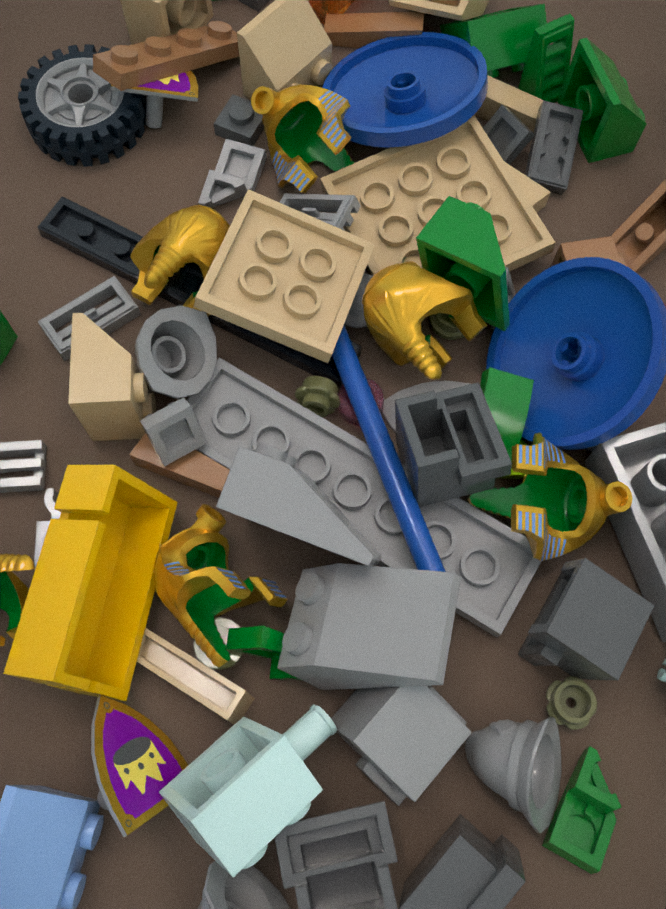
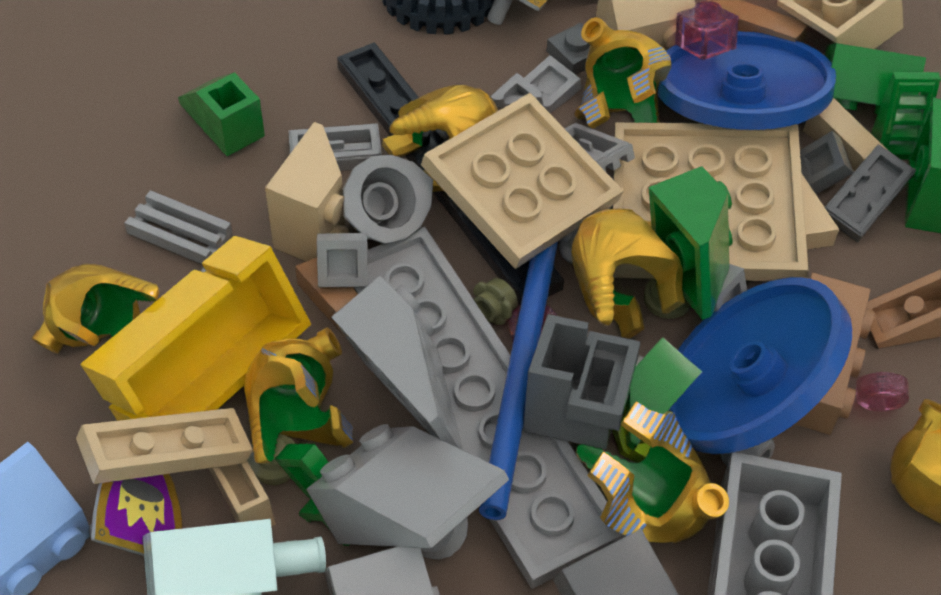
camera: 30 degrees right, 15 degrees down
(128, 708) = (162, 445): none -> tan plate
(348, 55) = (706, 30): none -> clear pink plate

